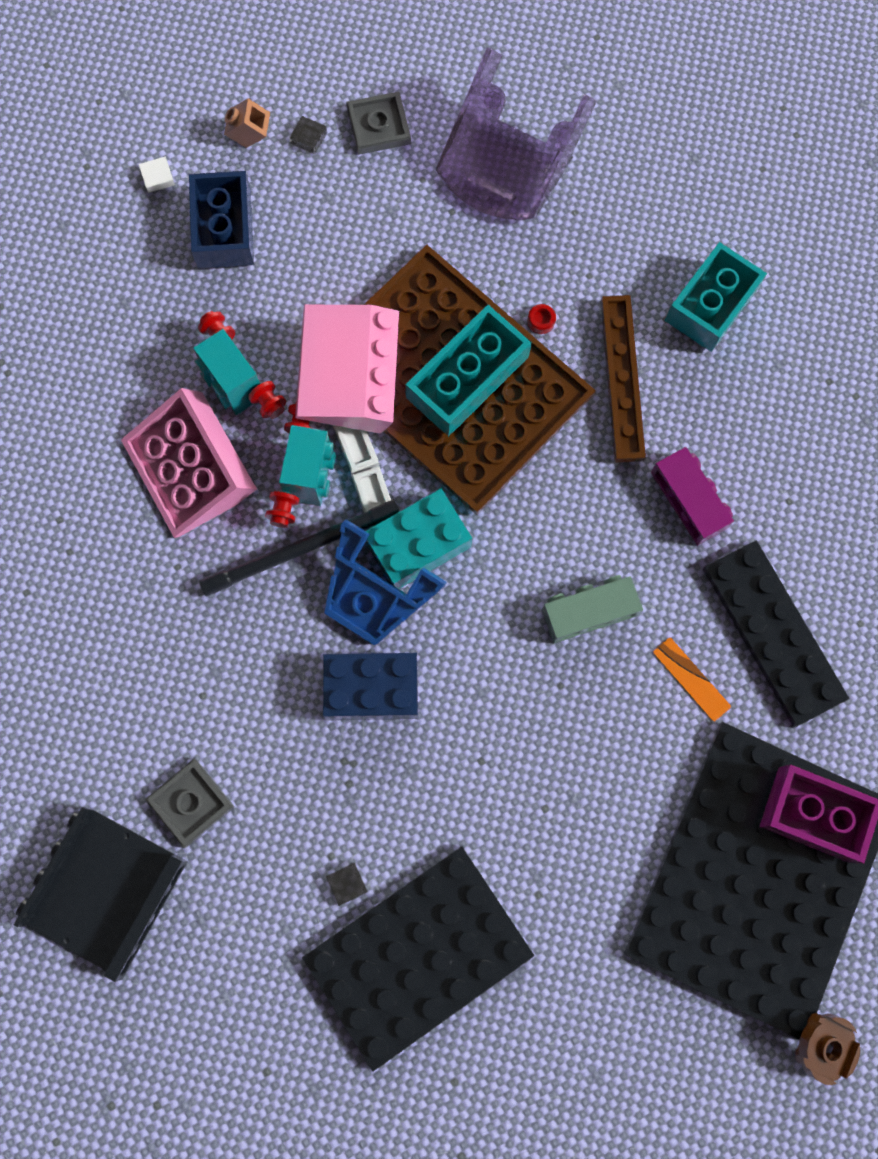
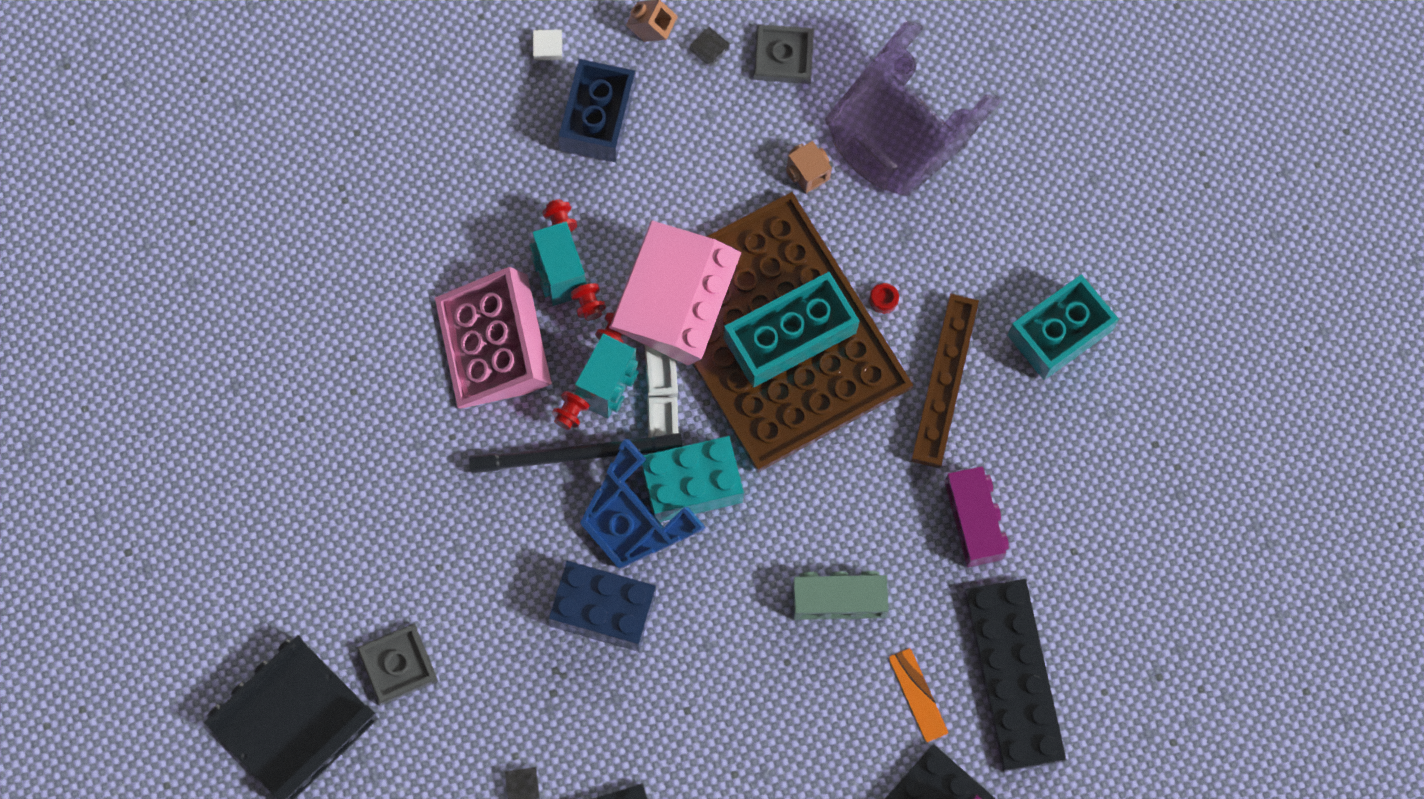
camera: 15 degrees right, 5 degrees down
(434, 217) = (808, 166): none -> nougat brick

